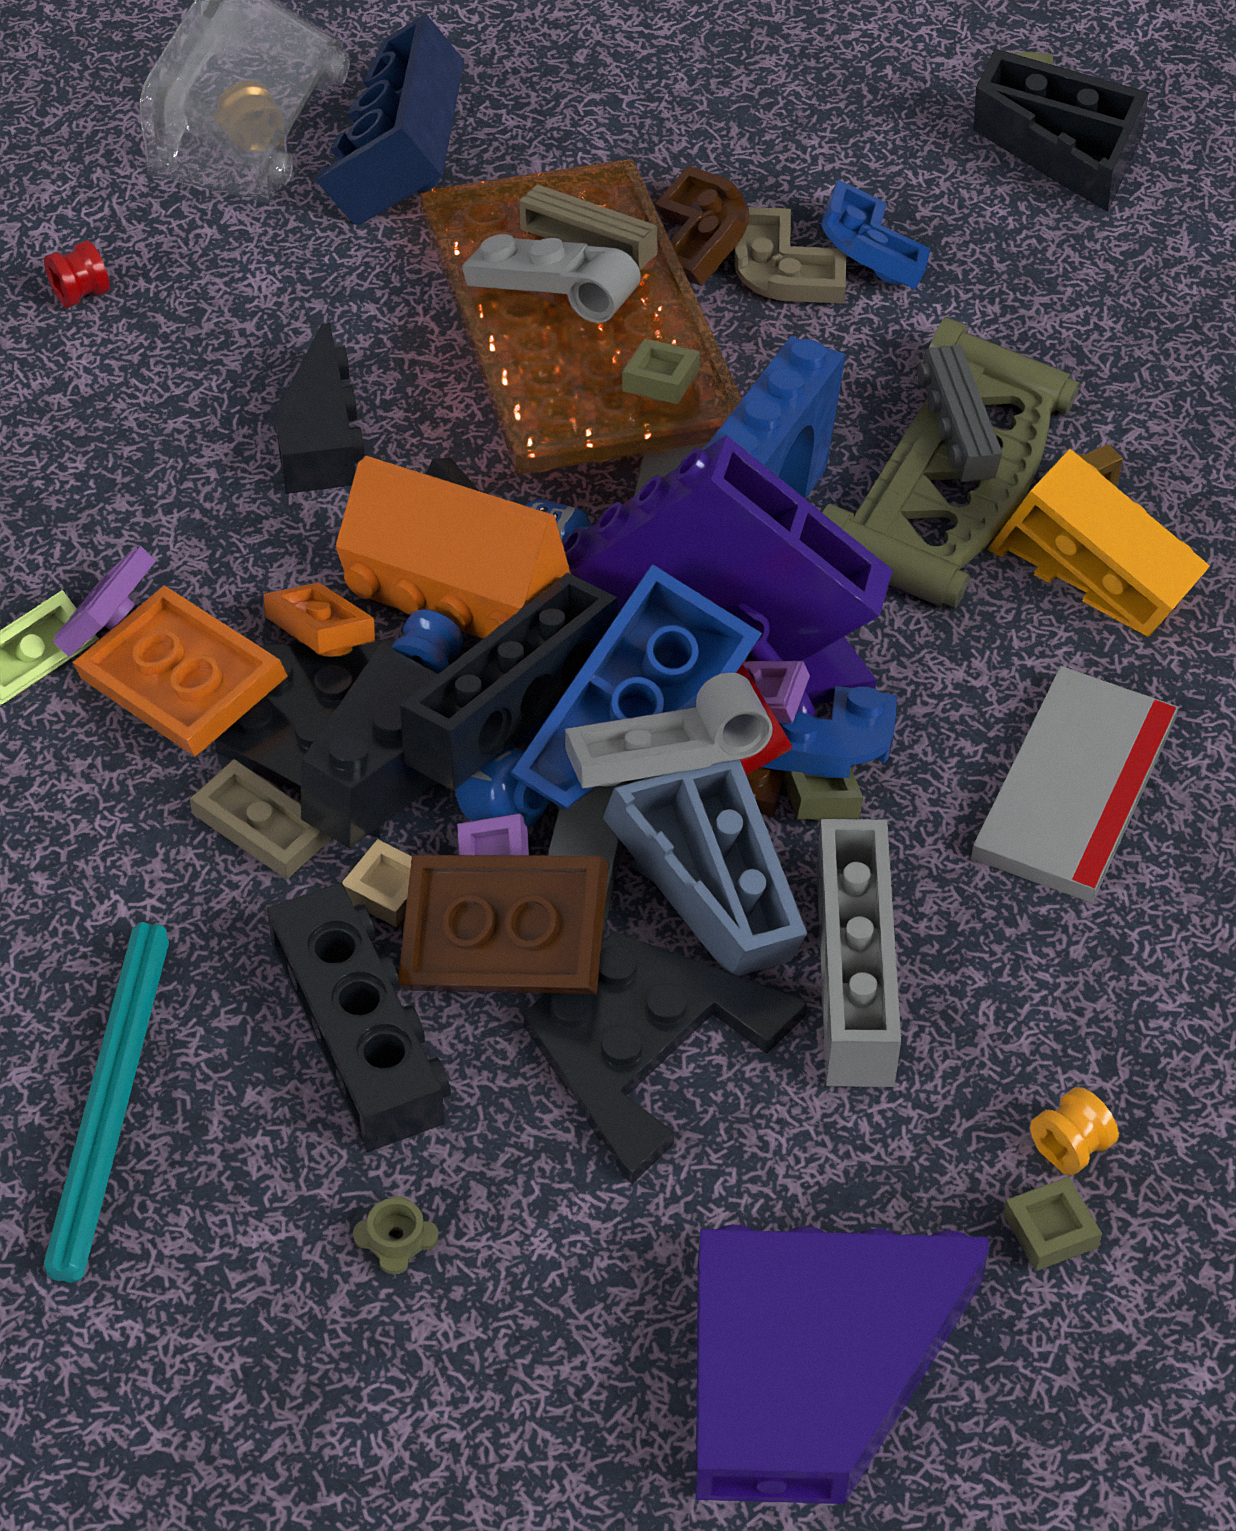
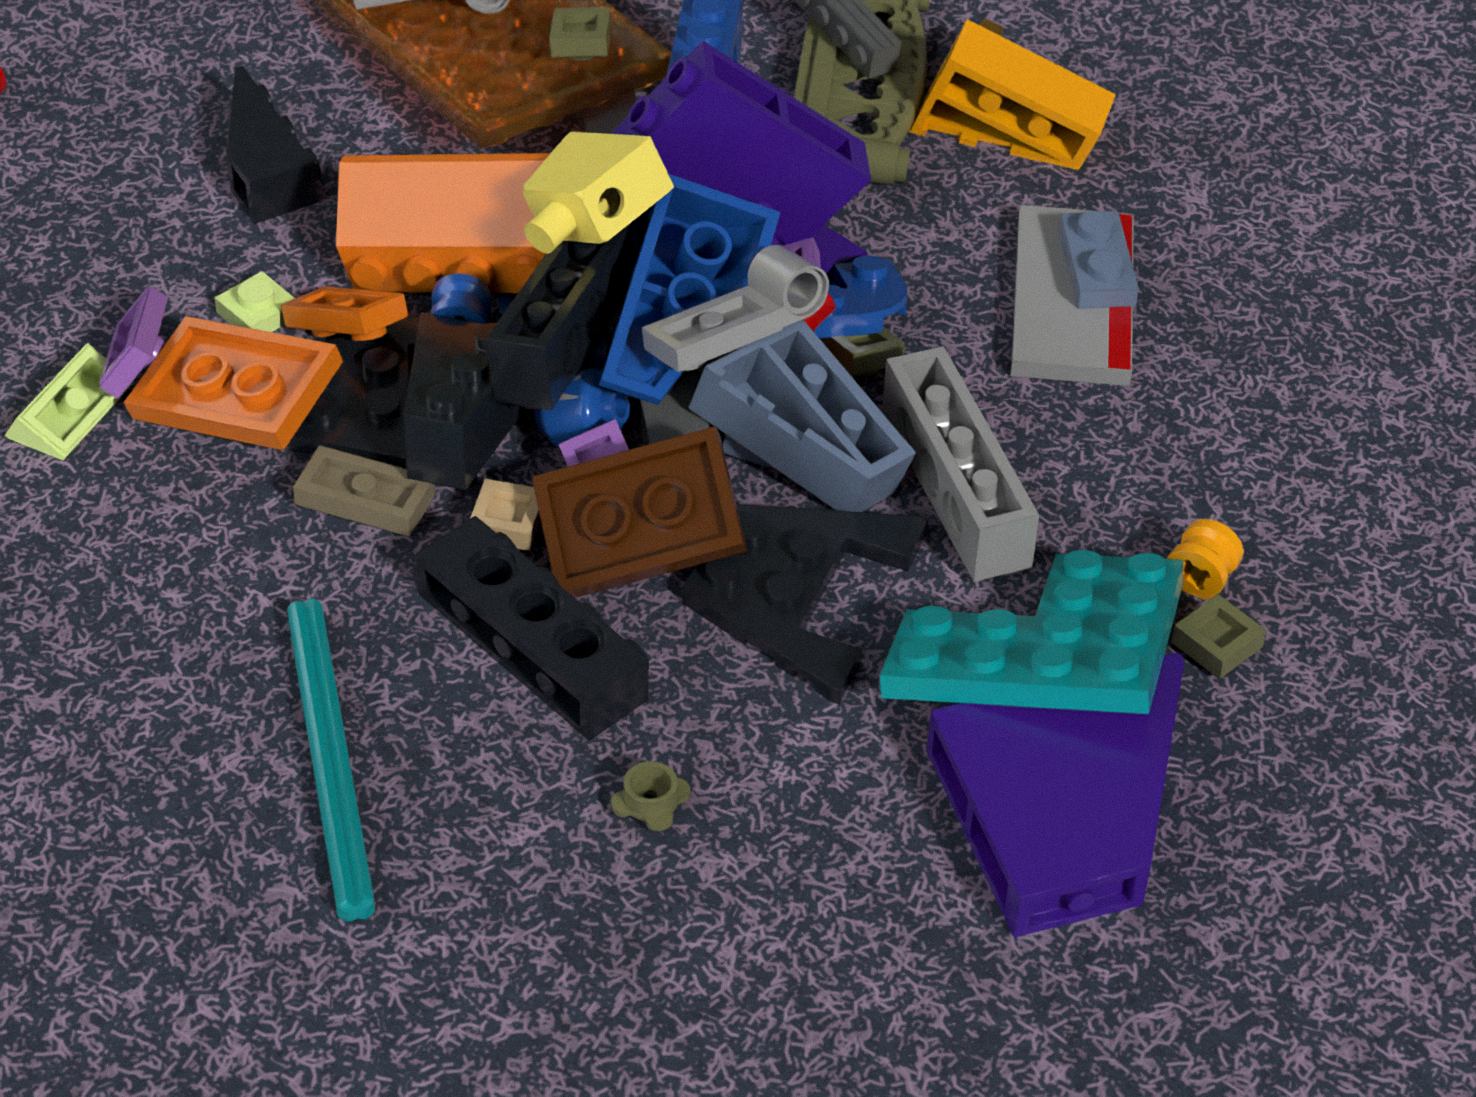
camera: 20 degrees left, 5 degrees down
(242, 585) = (254, 303): none -> yellowish green plate
(568, 565) = (593, 188): none -> light yellow torso
(869, 1214) = (1085, 649): none -> teal plate
(1112, 753) = (1098, 259): none -> sand blue plate

